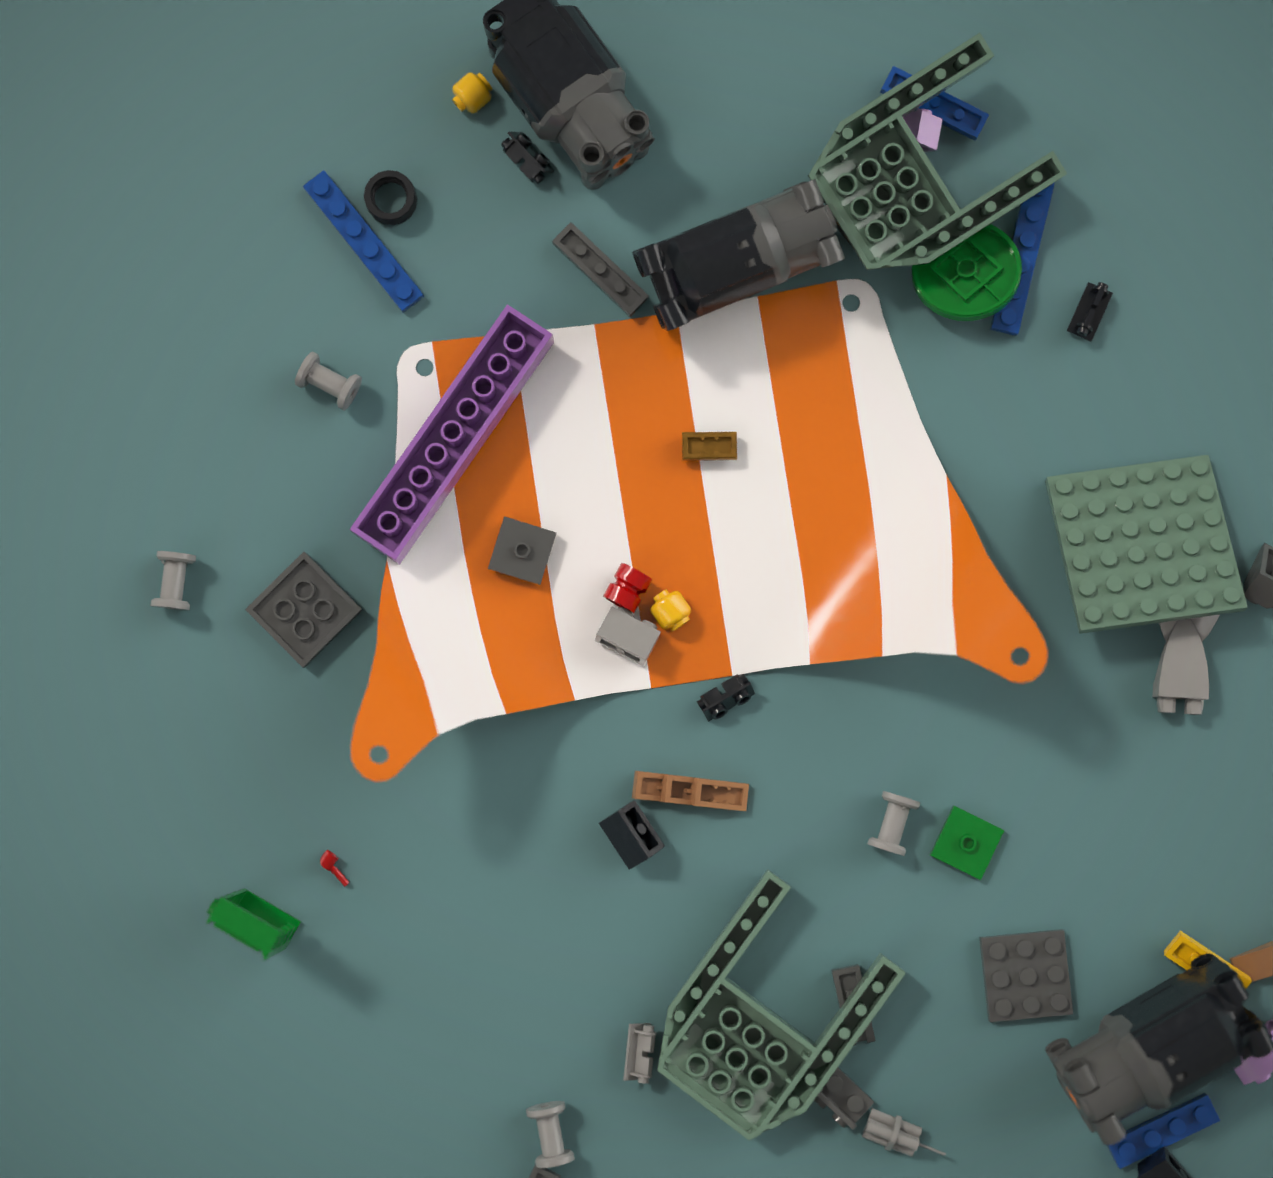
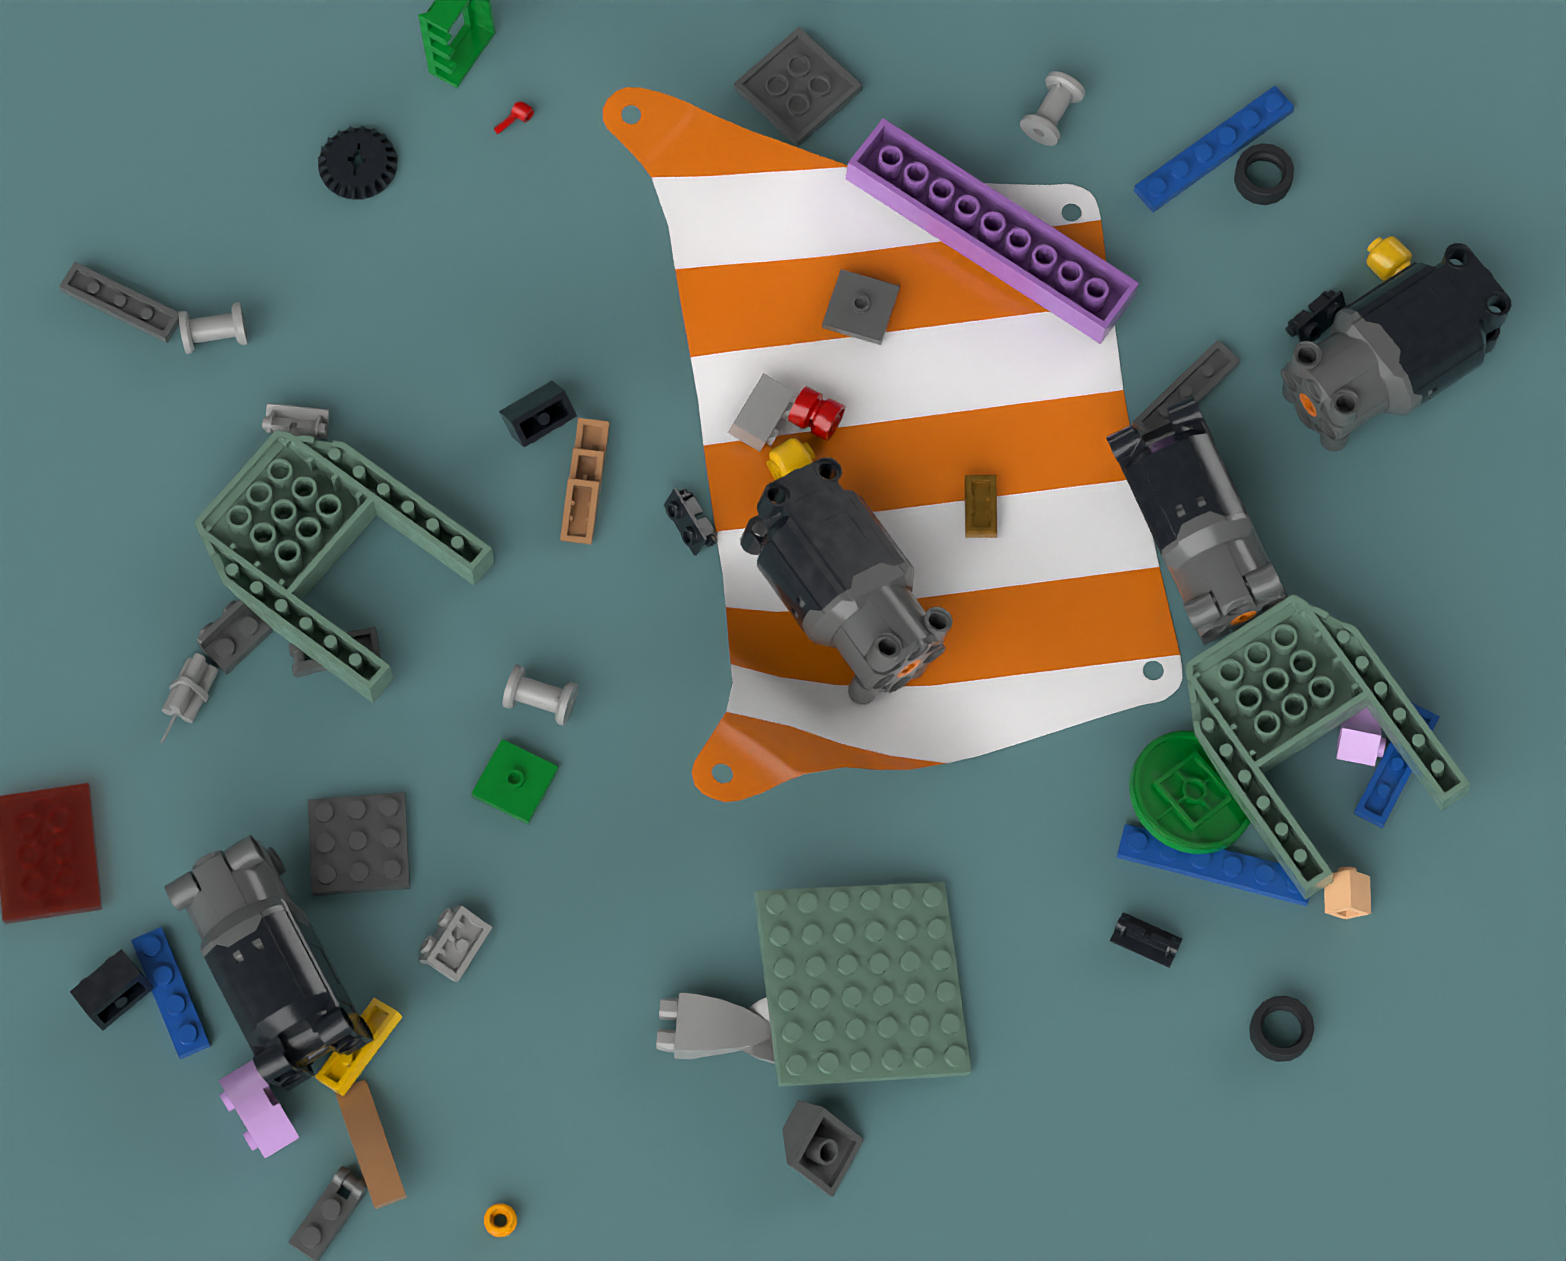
camera: 90 degrees right, 15 degrees down
(394, 997) = (371, 177): none -> black gear
(799, 558) = (844, 579): none -> piece
(1051, 139) = (1348, 894): none -> light nougat brick
(1113, 889) = (454, 942): none -> light grey bracket
(1175, 186) = (1298, 1010): none -> black tyre

